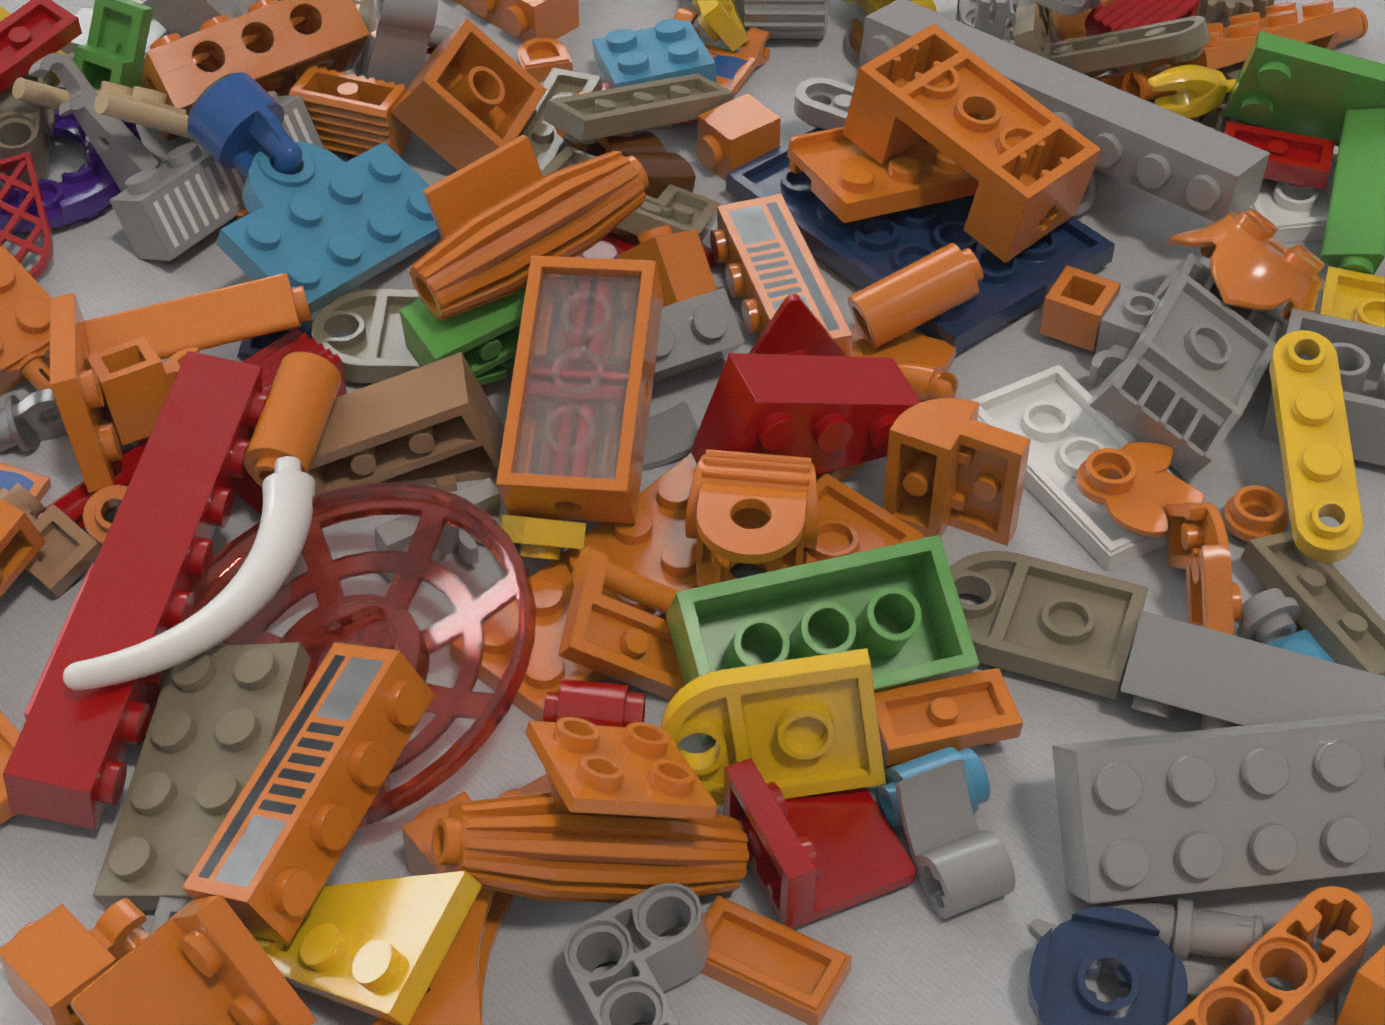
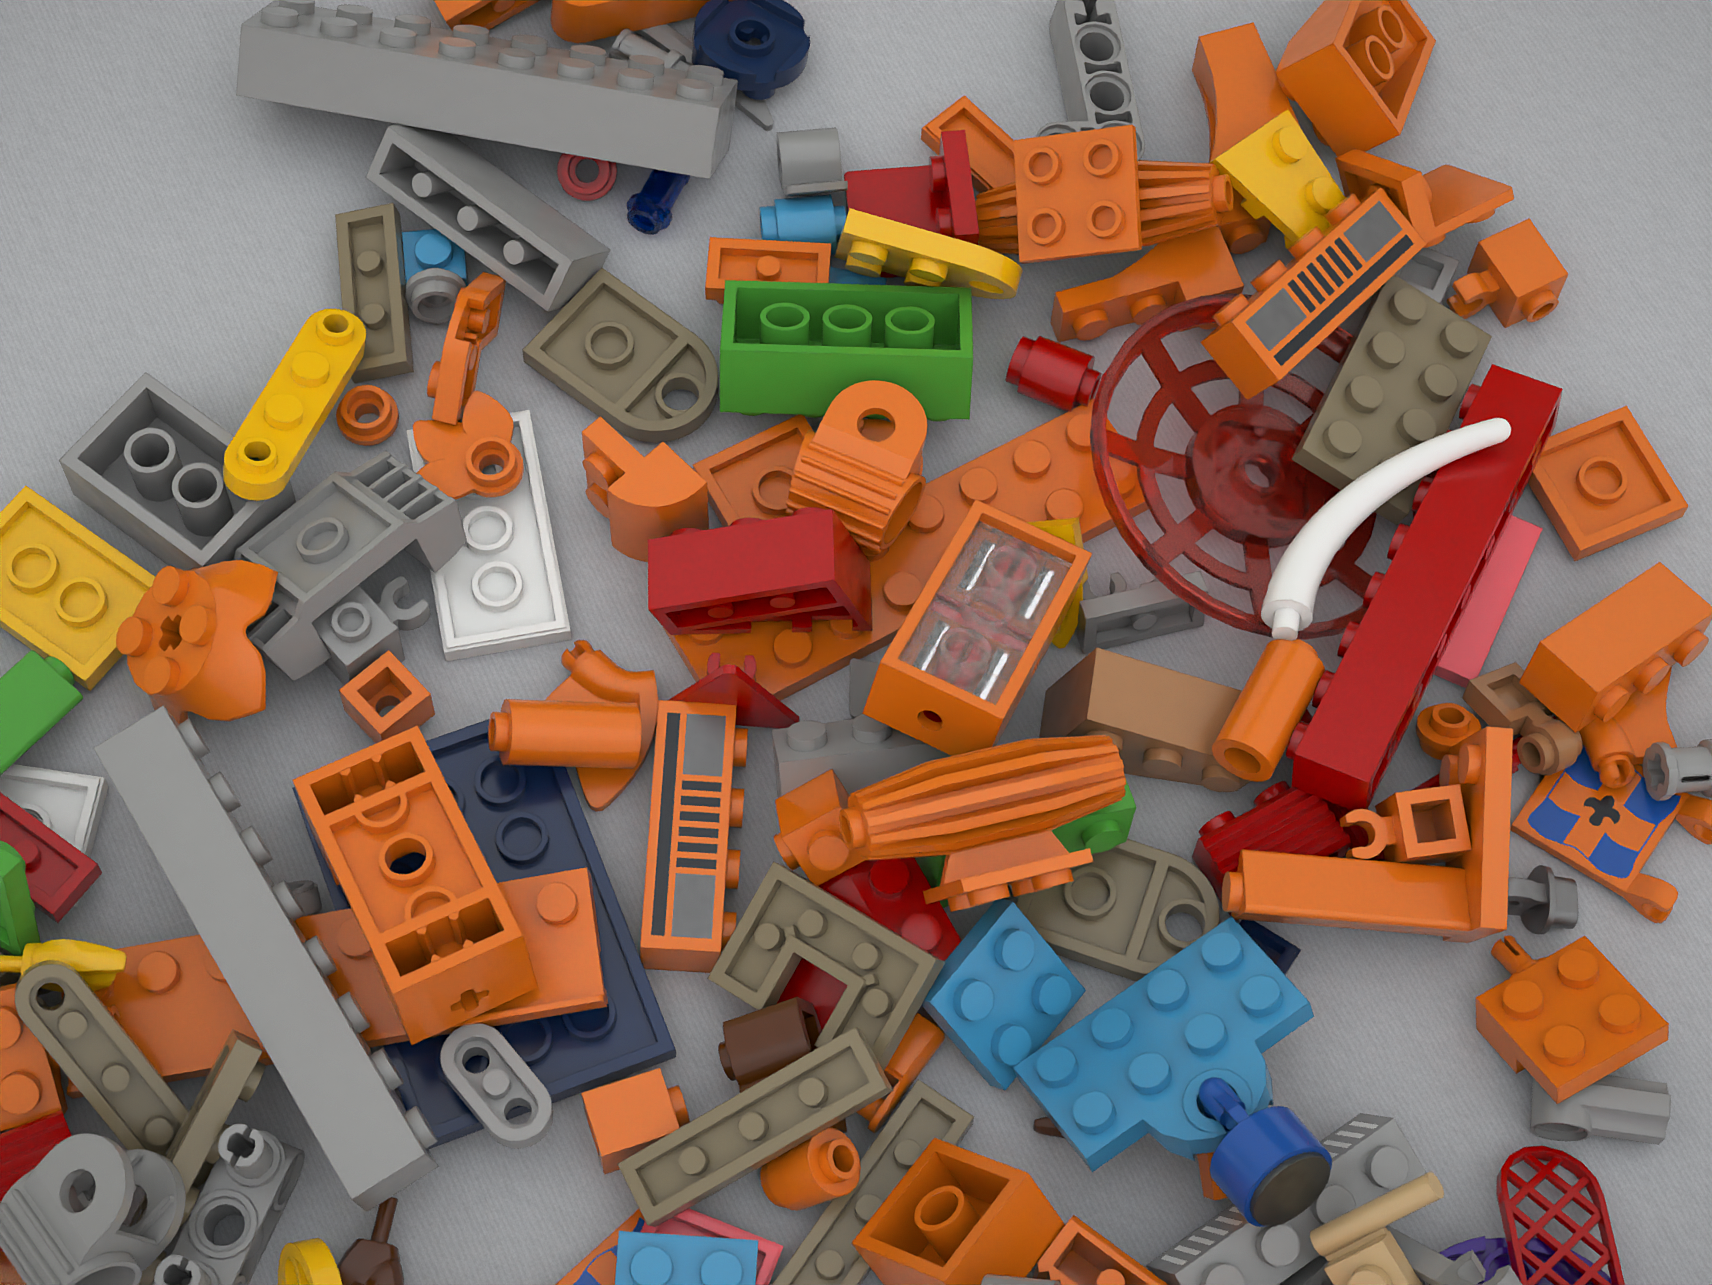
camera: 165 degrees left, 20 degrees up
(615, 635) = (1000, 415): orange plate -> none

